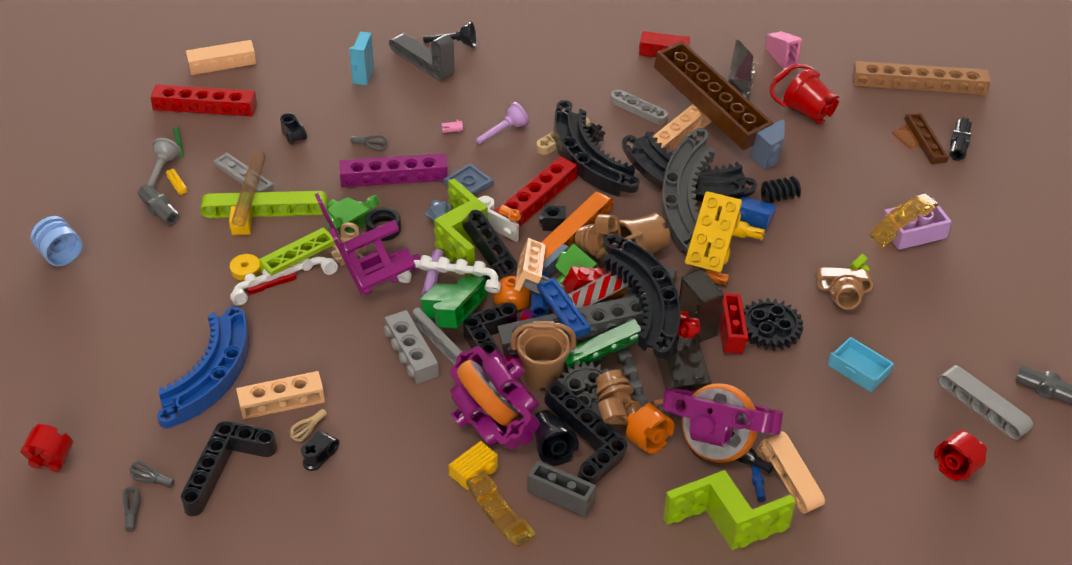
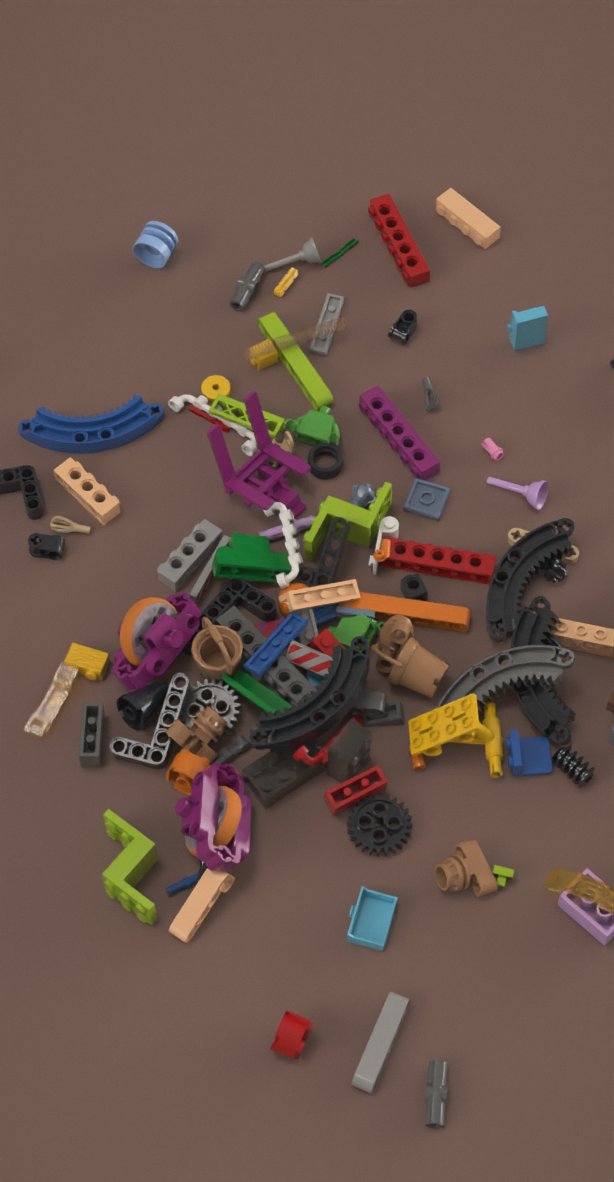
camera: 65 degrees right, 15 degrees up
(435, 62) = (577, 377): dark grey beam -> none

